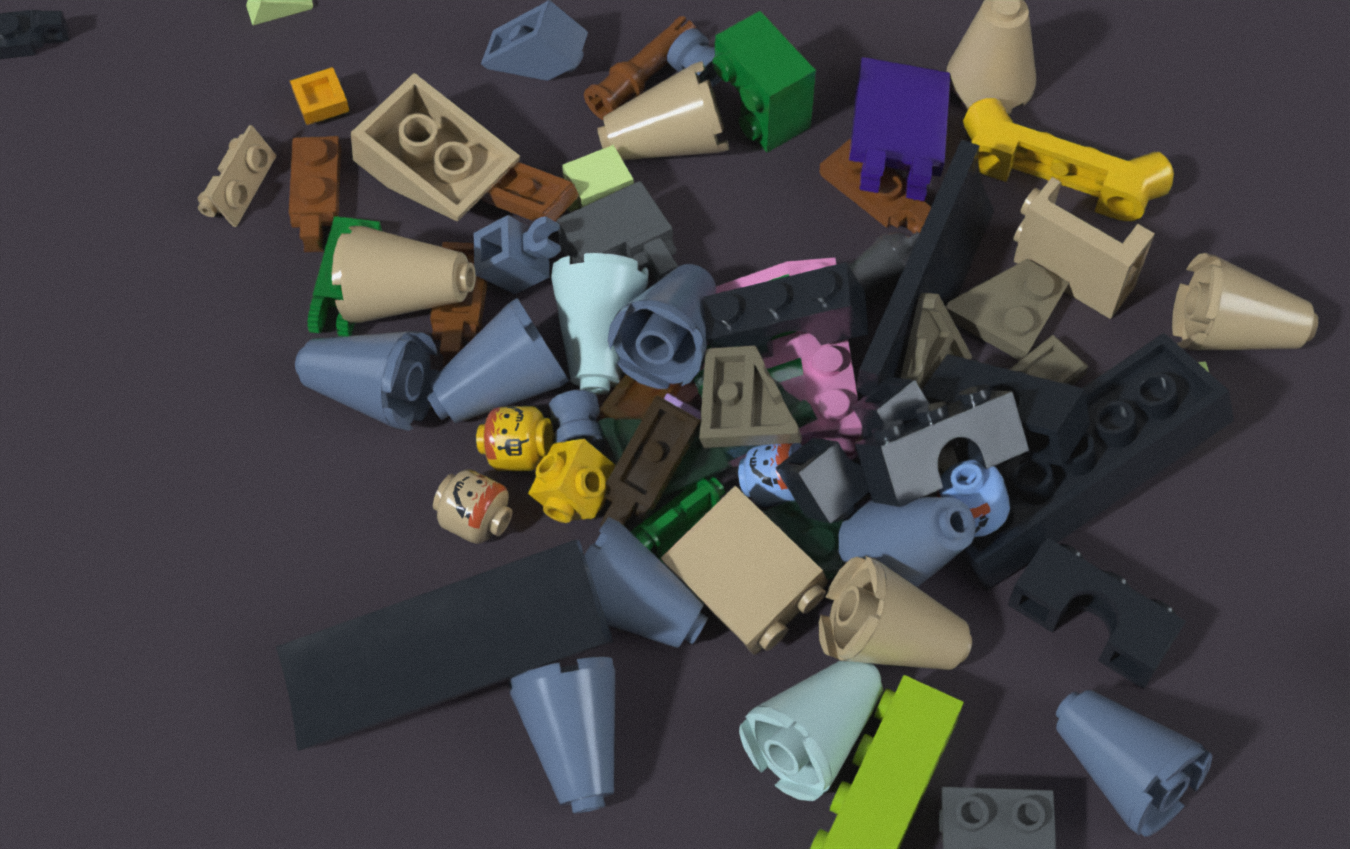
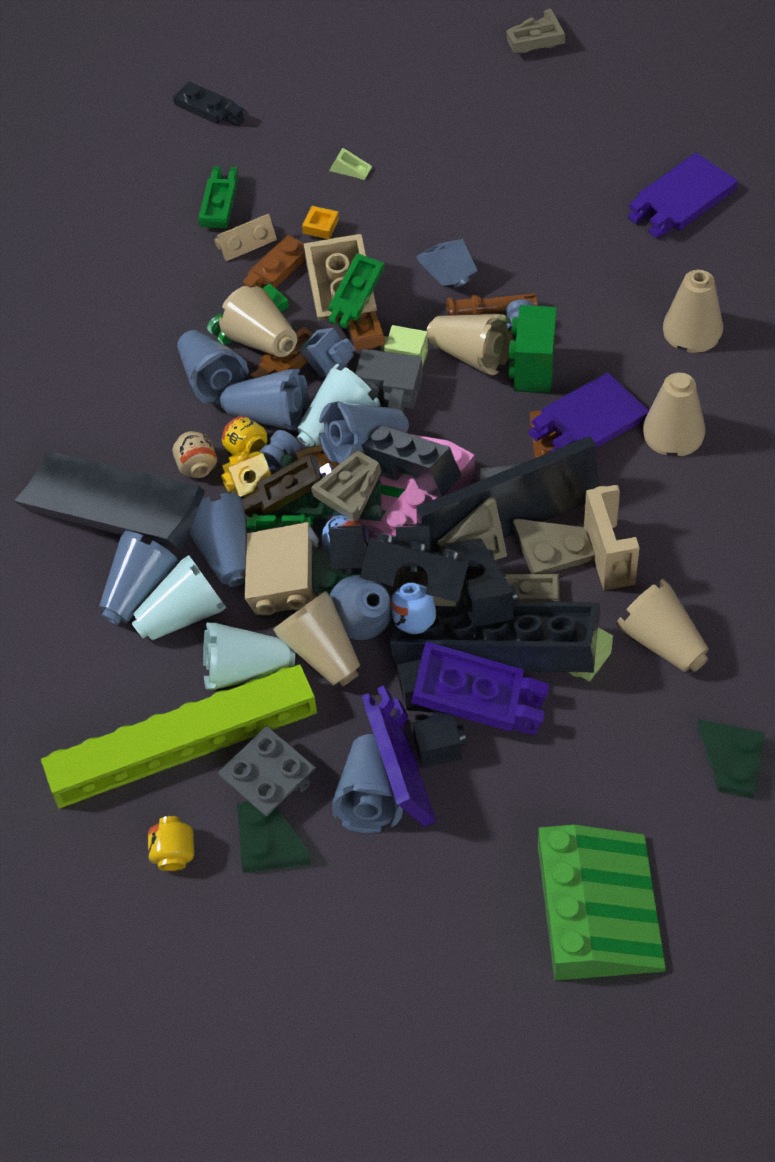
camera: 45 degrees right, 5 degrees down
(149, 150) = (218, 199): none -> green hinge
(481, 148) = (355, 290): none -> green hinge
(662, 714) = (177, 602): none -> light aqua cone
(1120, 184) = (674, 525): yellow plate -> none
(1130, 542) = (478, 689): none -> dark purple tile
(1134, 694) = (399, 756): none -> dark purple tile

